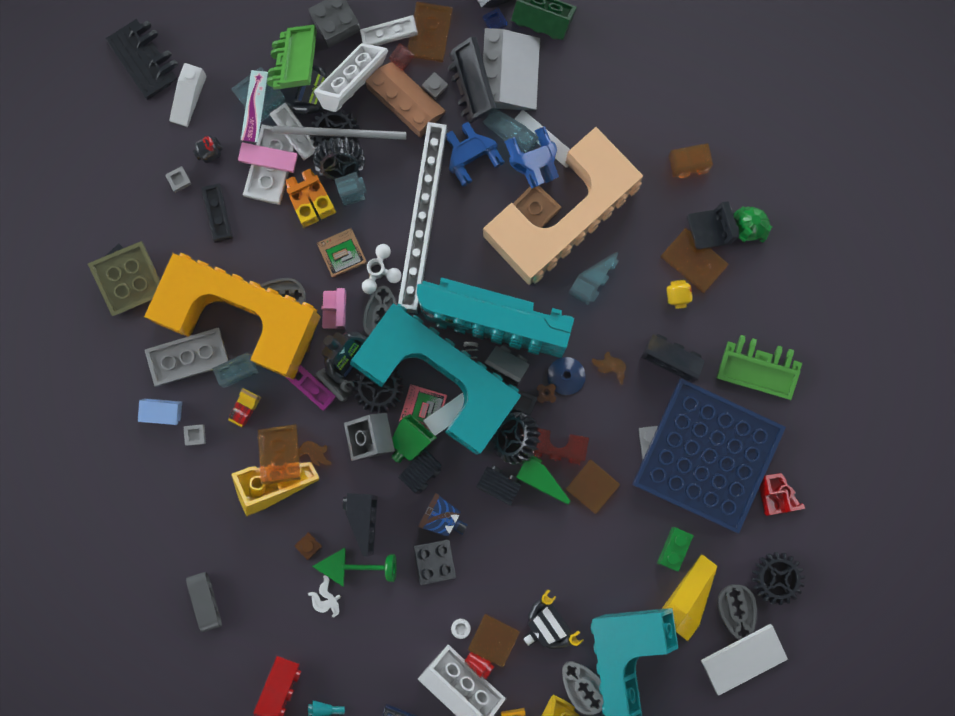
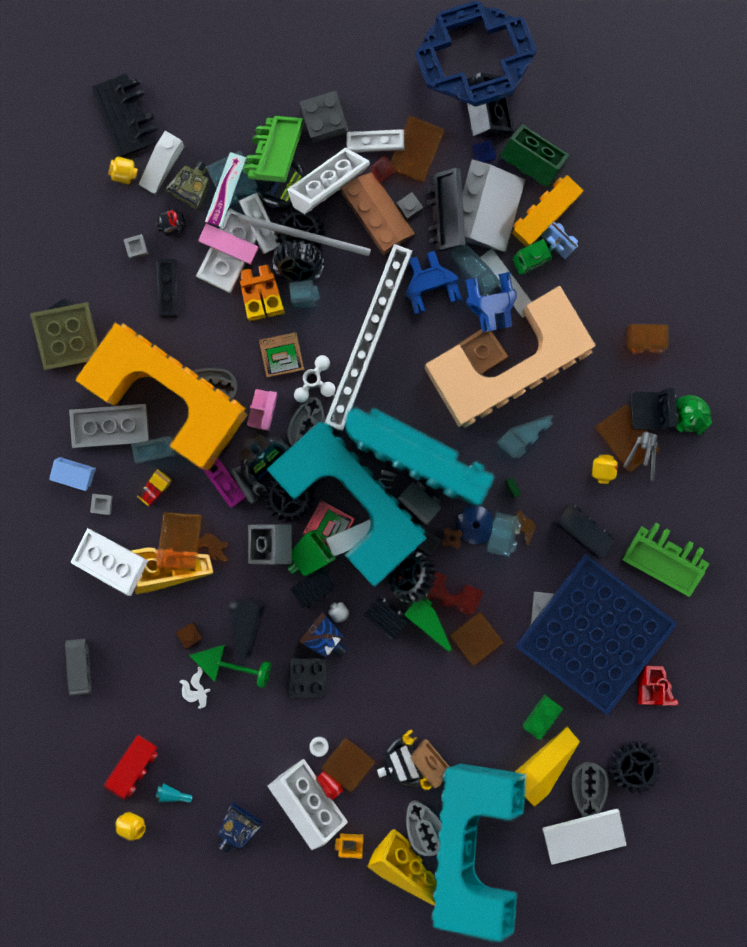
camera: 15 degrees right, 5 degrees up
(151, 110) = (122, 170): none -> yellow head
(213, 489) = (109, 561): none -> white tile
(219, 111) = (190, 185): none -> torso
(451, 491) = (338, 612): none -> white piece
(564, 106) = (532, 257): none -> green torso
(567, 63) = (547, 211): none -> light orange brick
(574, 619) = (429, 762): none -> medium nougat tile
(585, 86) = (559, 240): none -> light blue hips
(594, 331) = (512, 487): none -> dark green tile
(595, 377) = (503, 534): none -> clear light blue brick
(715, 259) = (648, 443): none -> dark grey plant

